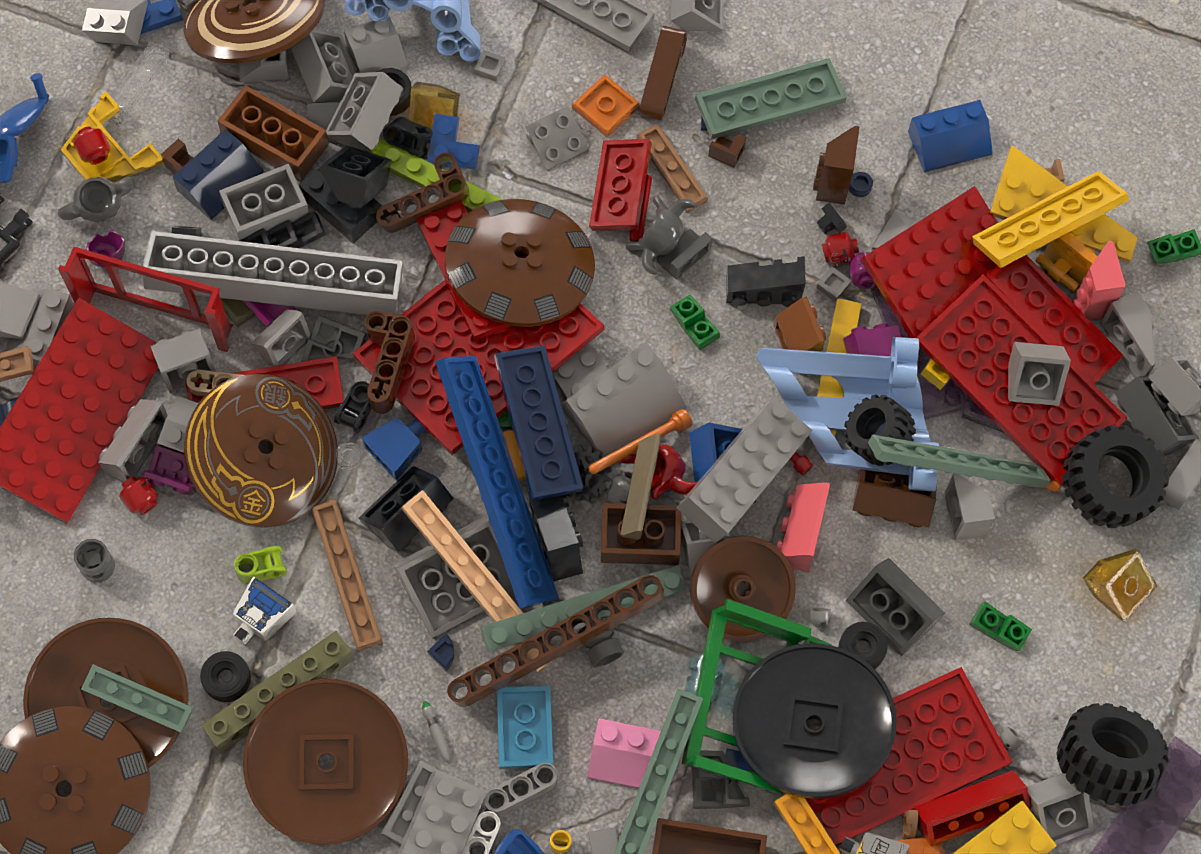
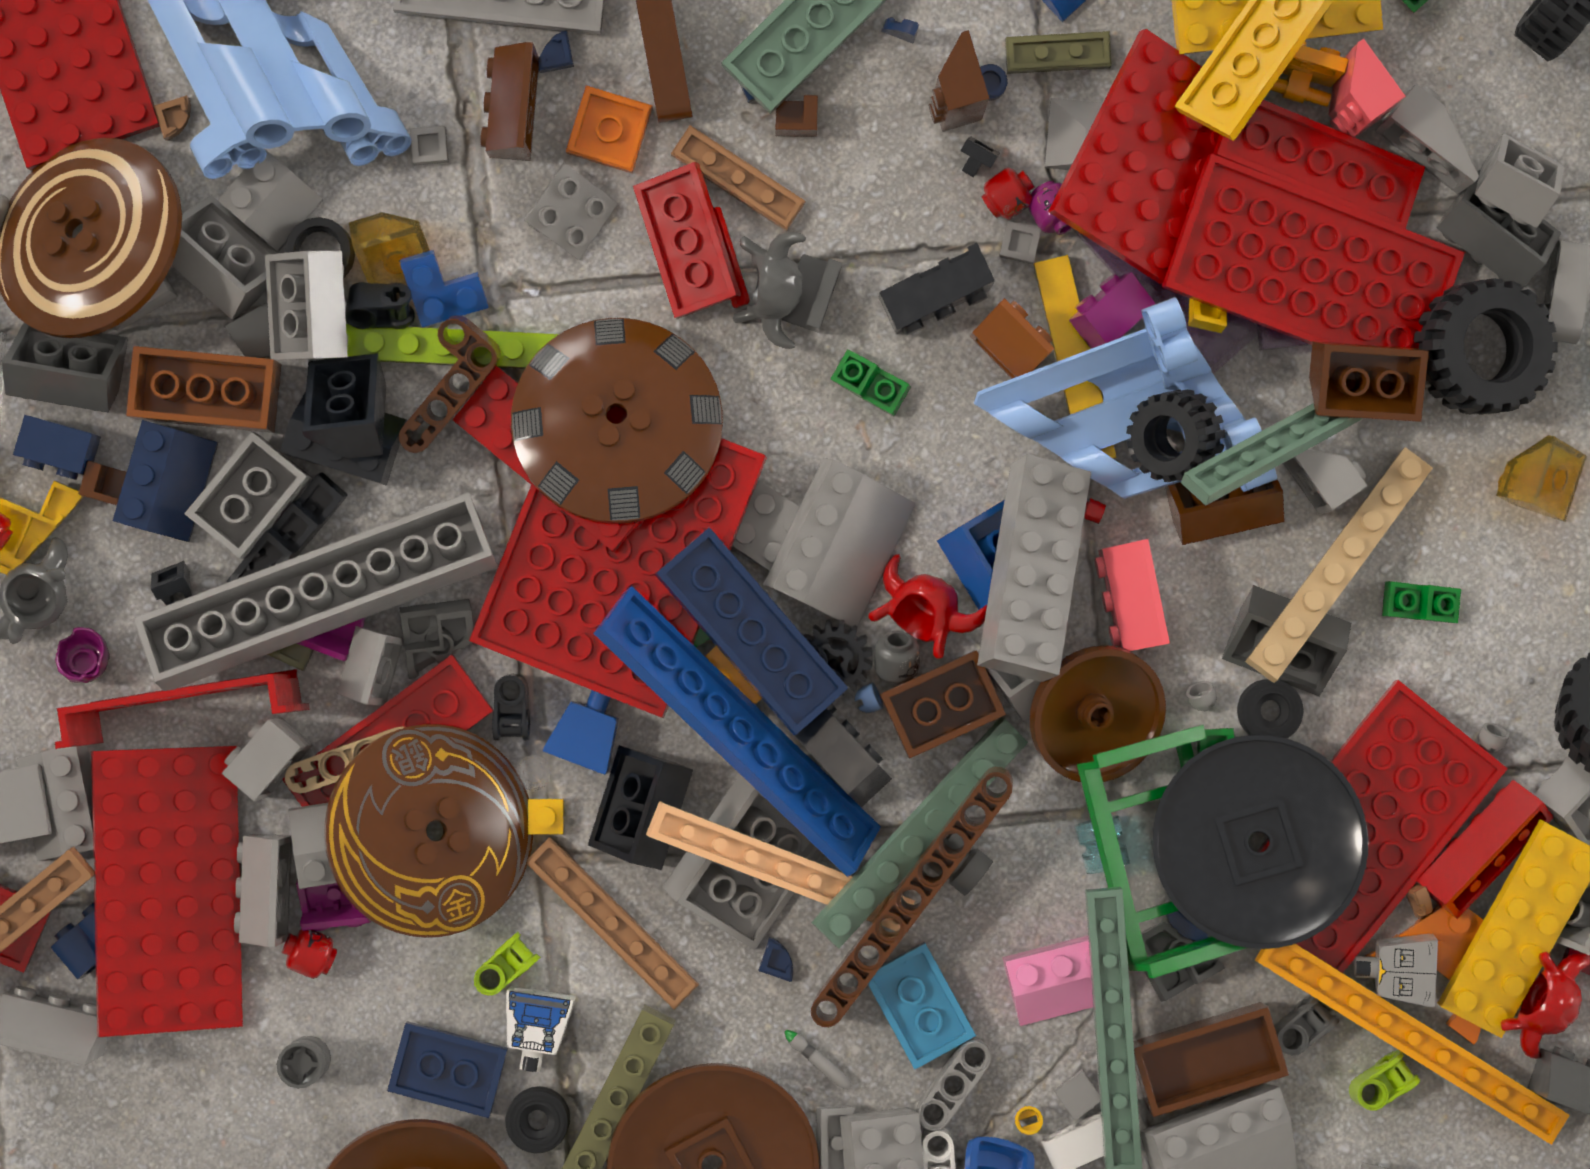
camera: 25 degrees left, 20 degrees up
(163, 123) = (55, 445): none -> dark blue brick
(185, 614) = (447, 1069): none -> dark blue plate
(195, 84) = (65, 370): none -> dark grey slope
(341, 486) = (546, 816): none -> yellow plate
(387, 363) = (521, 642): reddish brown beam -> none
(554, 60) = (511, 102): none -> reddish brown slope
(593, 512) = (870, 698): none -> medium blue hinge
(595, 51) = (556, 54): none -> dark blue tile
(640, 487) = (918, 654): dark tan slope -> none
(678, 422) = (916, 529): orange piece -> none
(819, 129) = (906, 30): none -> dark blue tile
(912, 186) = (1058, 52): none -> olive tile
(952, 567) = (1338, 565): none -> tan plate
(1026, 455) = (1368, 381): none -> reddish brown slope
(1037, 373) = (1336, 257): light grey slope -> none

